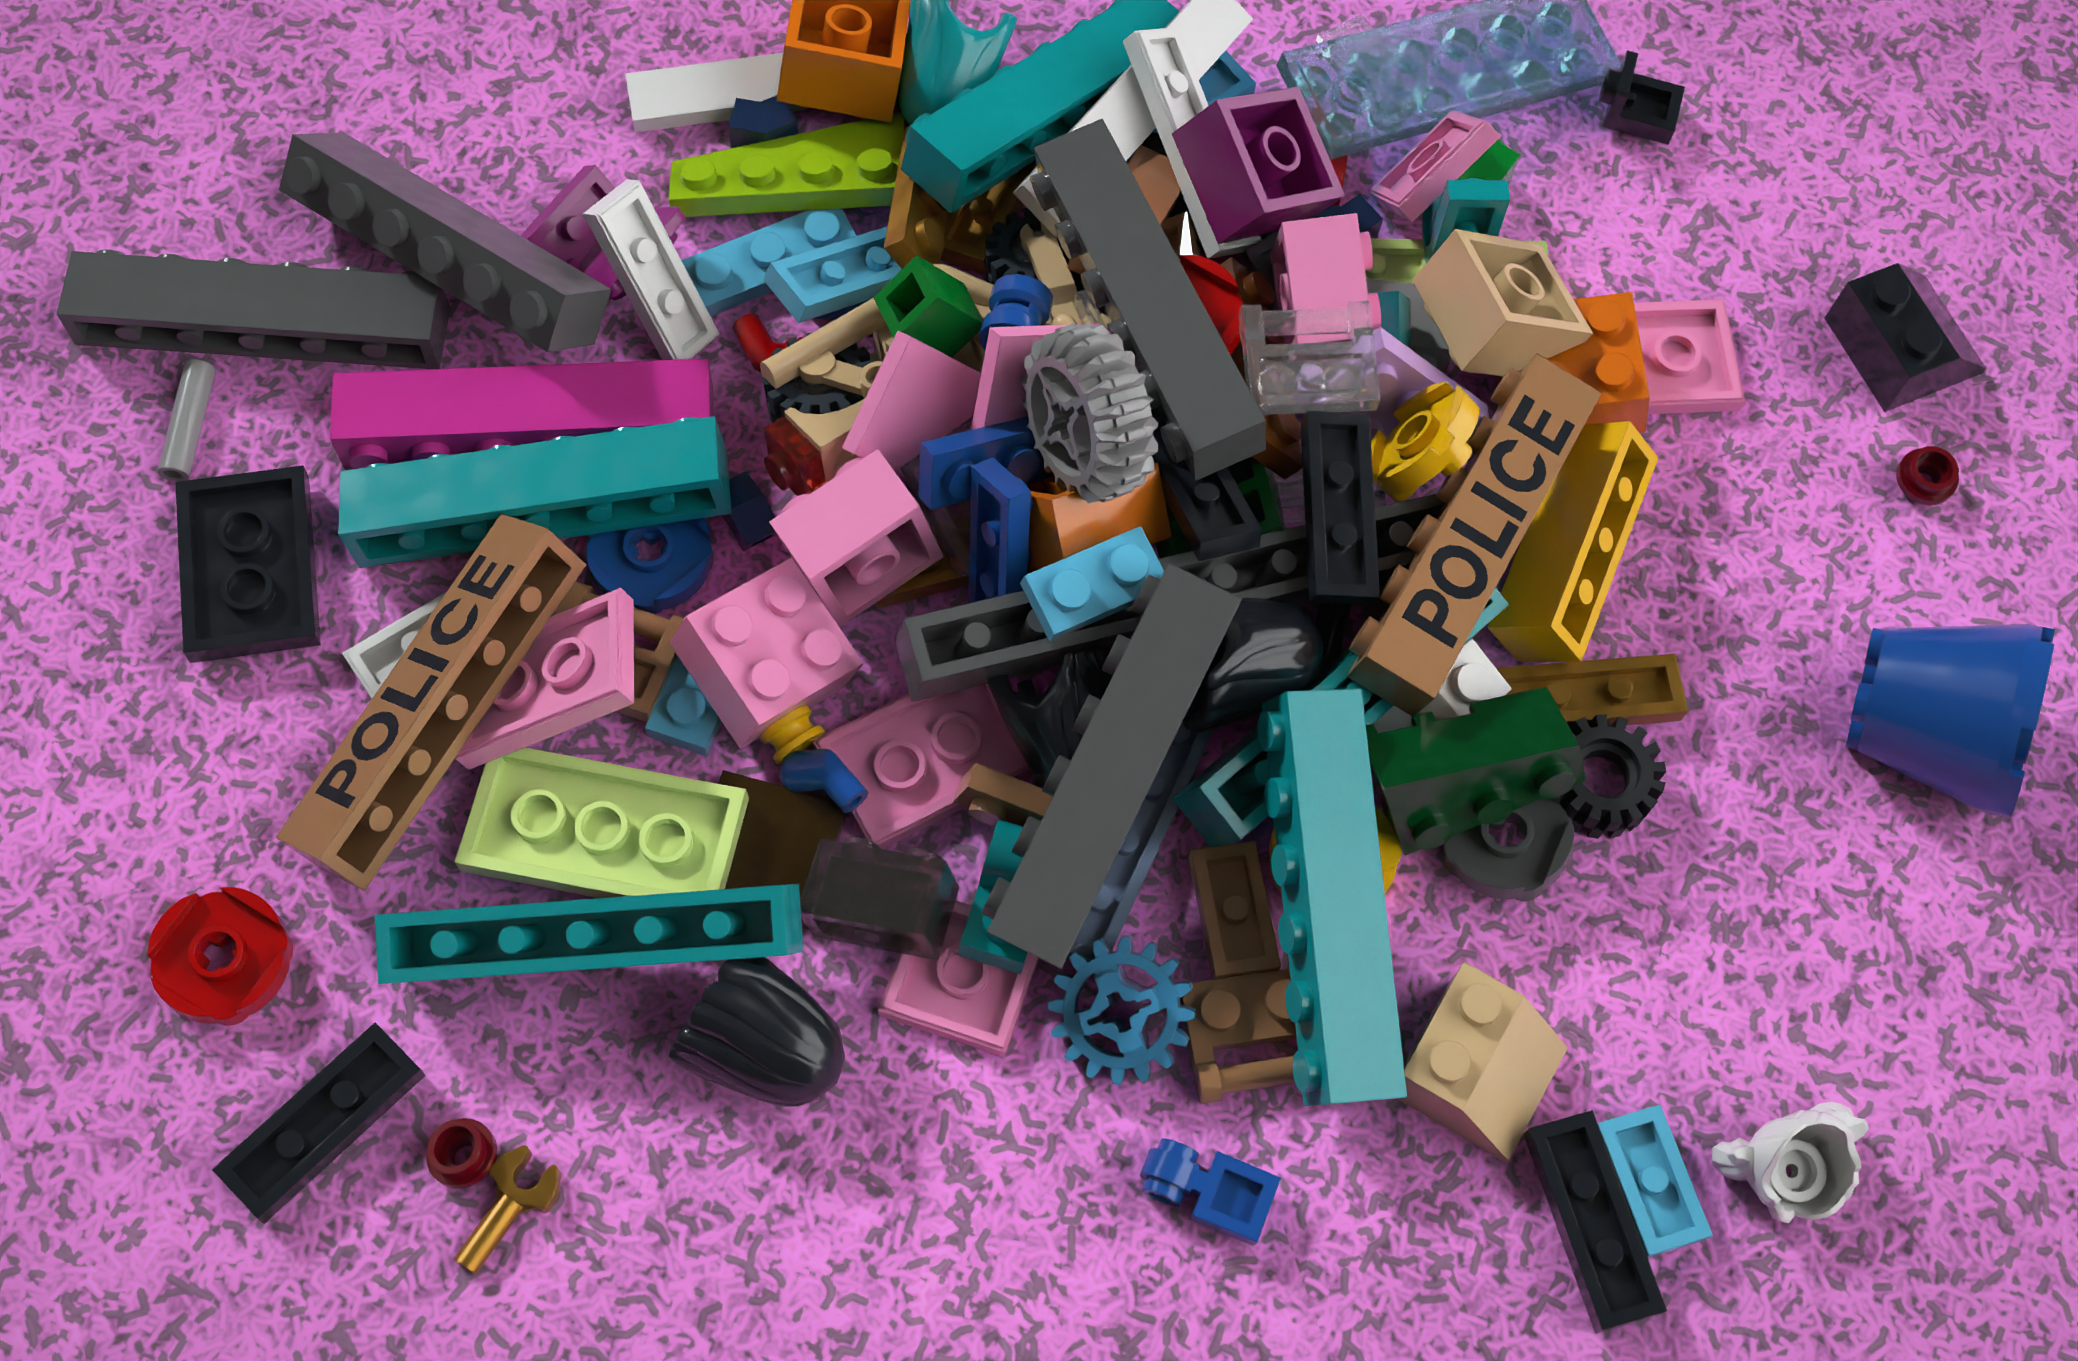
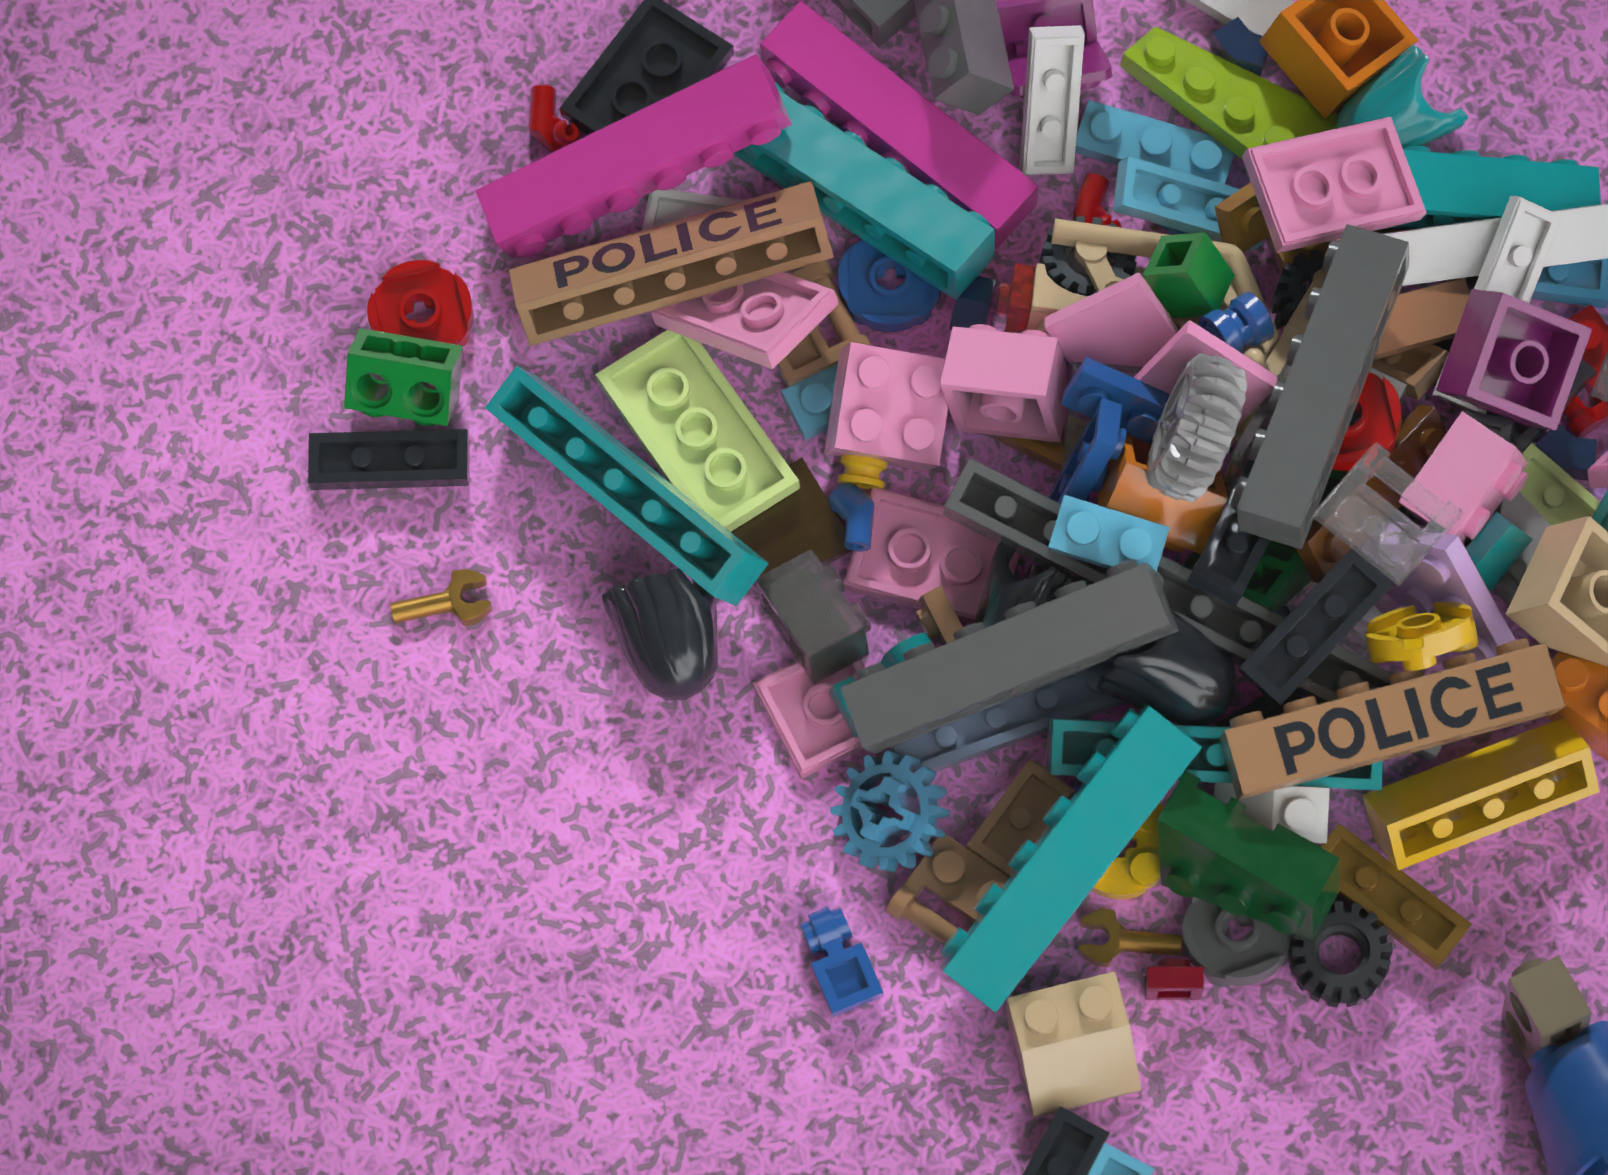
camera: 55 degrees right, 5 degrees up
(184, 683) = (544, 123): none -> red arm
(254, 1017) = (403, 366): none -> green brick
(305, 634) = (634, 158): none -> dark pink brick
(448, 1140) = (442, 535): dark red plate -> none
(975, 139) = (1332, 180): none -> bright pink tile
(1426, 928) = (1124, 940): none -> pearl gold bar
(1502, 925) = (1174, 980): none -> dark red plate
(1816, 667) = (1543, 1006): none -> dark tan brick

